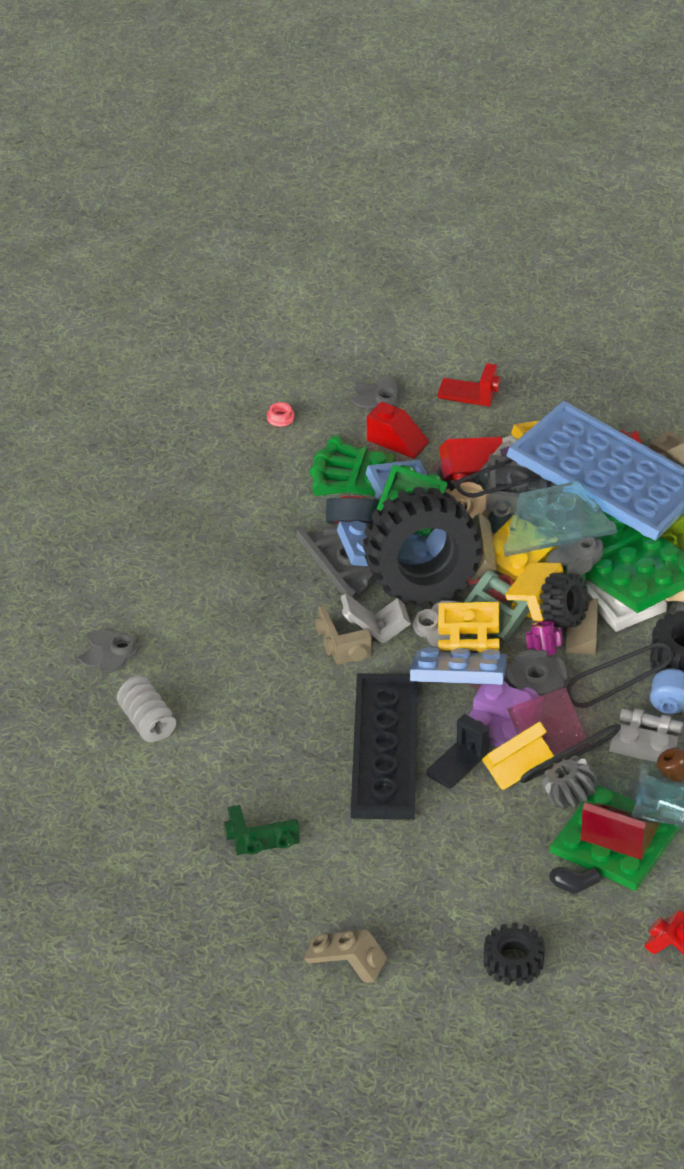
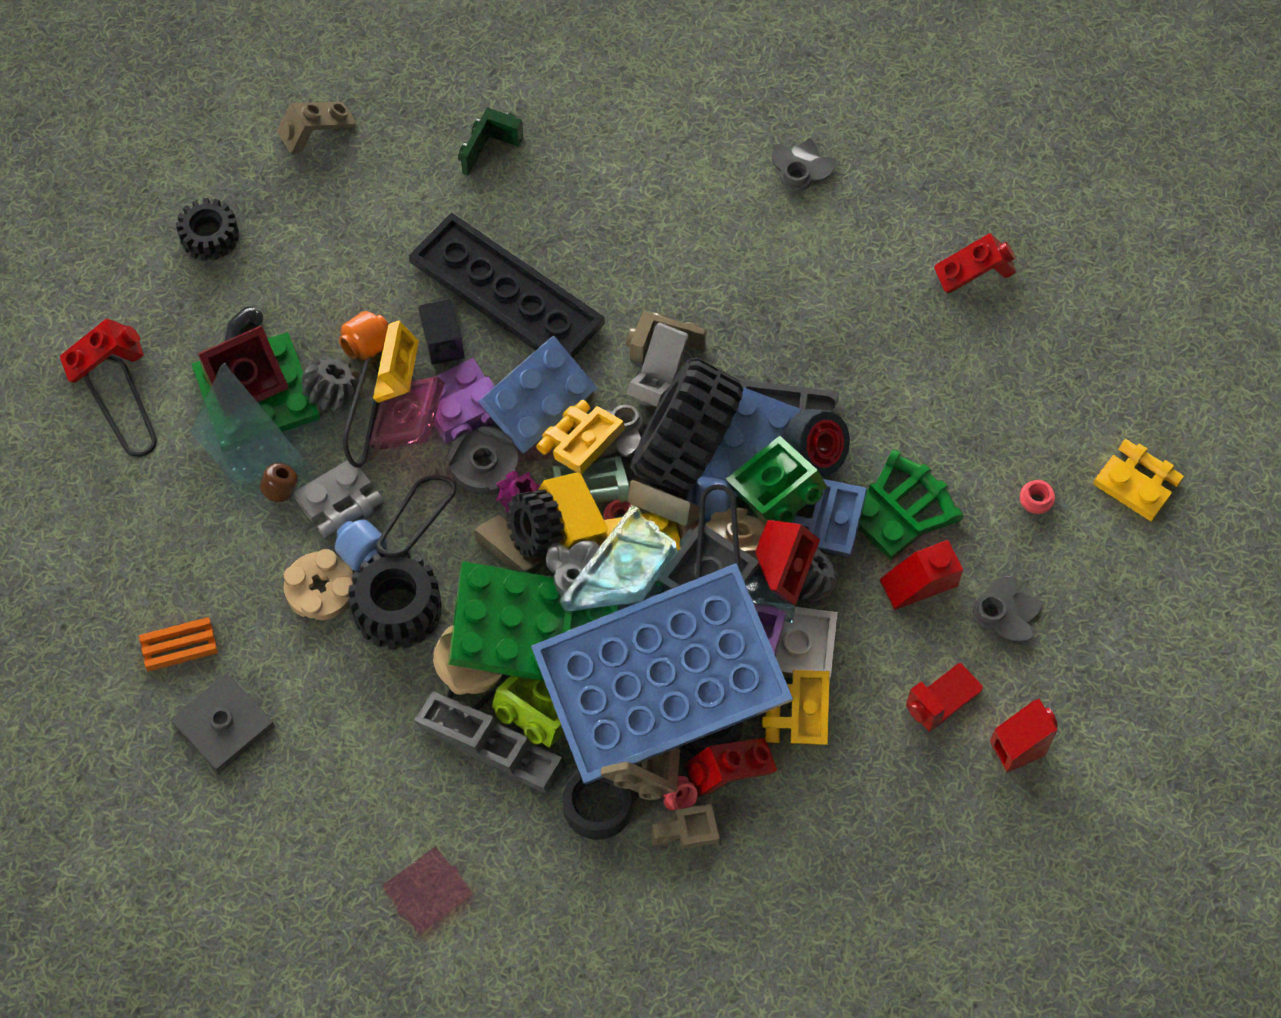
camera: 125 degrees right, 20 degrees up
(120, 515) = (975, 261): none -> red bracket
(146, 709) = (696, 140): light grey piece -> none
(228, 385) = (1134, 488): none -> yellow plate
(462, 337) = (1025, 736): none -> red slope
(509, 792) = (363, 336): none -> orange head

